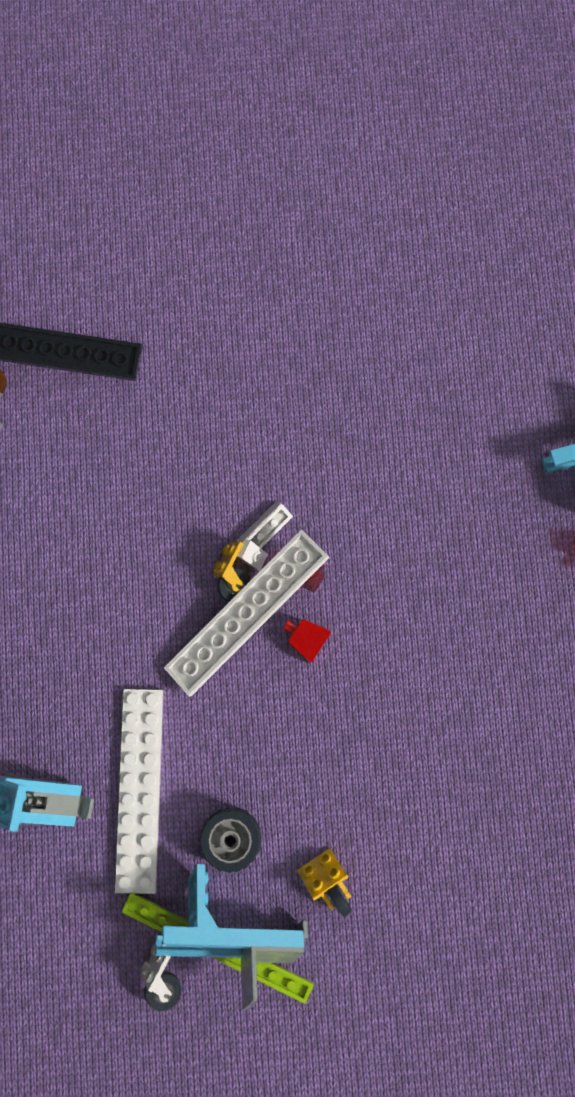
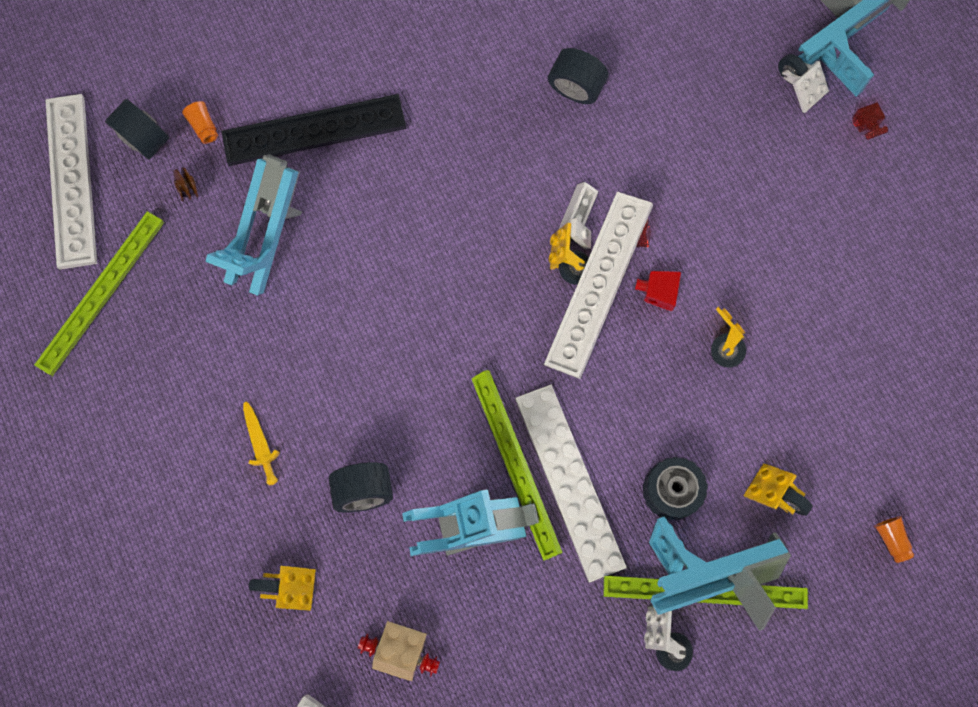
camera: 20 degrees left, 5 degrees down
(96, 752) = (515, 462): none -> lime plate
(318, 395) = (578, 76): none -> black wheel
(346, 724) = (729, 348): none -> plate
(419, 972) = (895, 538): none -> orange plant
(545, 487) = (806, 78): none -> white plate

